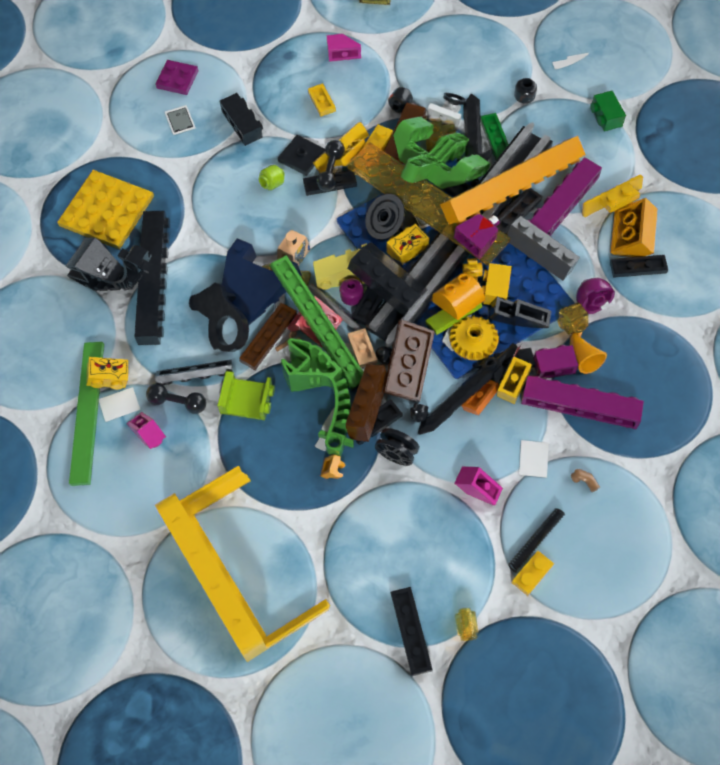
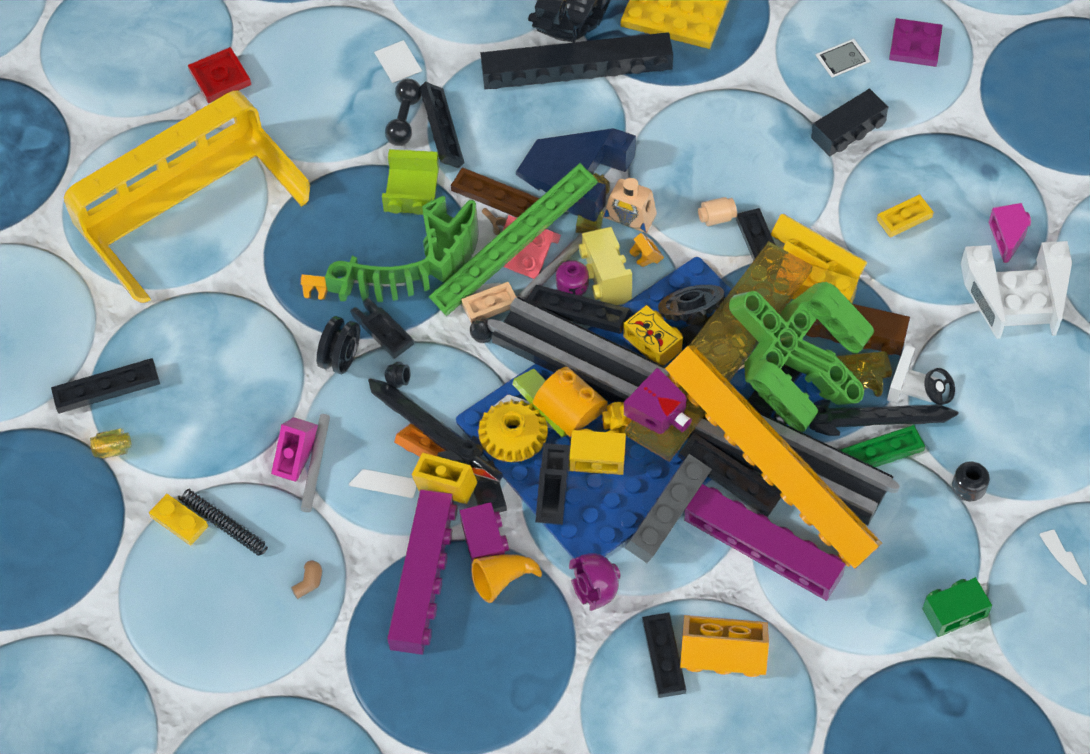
camera: 85 degrees right, 5 degrees down
(85, 421) = (383, 30): bright green tile -> none
(107, 373) = (430, 35): yellow brick -> none
(107, 541) = (219, 74): none -> red plate
(146, 430) = (358, 88): dark pink slope -> none
(217, 307) = (507, 143): black animal -> none
(271, 177) = (752, 169): lime head -> none
(301, 155) = (803, 202): black plate -> none
(303, 201) = (717, 211): none -> light nougat brick
(326, 180) = (750, 229): black piece -> none
(326, 247) = (649, 251): none -> light orange tile
(366, 403) = (399, 306): reddish brown brick -> none
(386, 278) = (577, 301): black slope -> none
(392, 48) = (1019, 296): none -> white wedge
(399, 99) = (922, 313): black head -> none
(408, 361) = (467, 352): tile -> none
(494, 474) = (315, 463): none -> light grey bar
(505, 427) = (384, 483): none -> white sticker
(533, 458) = (340, 519): white sticker -> none
(573, 318) = (553, 556): clear yellow brick -> none
(615, 197) = (779, 616): yellow bracket -> none

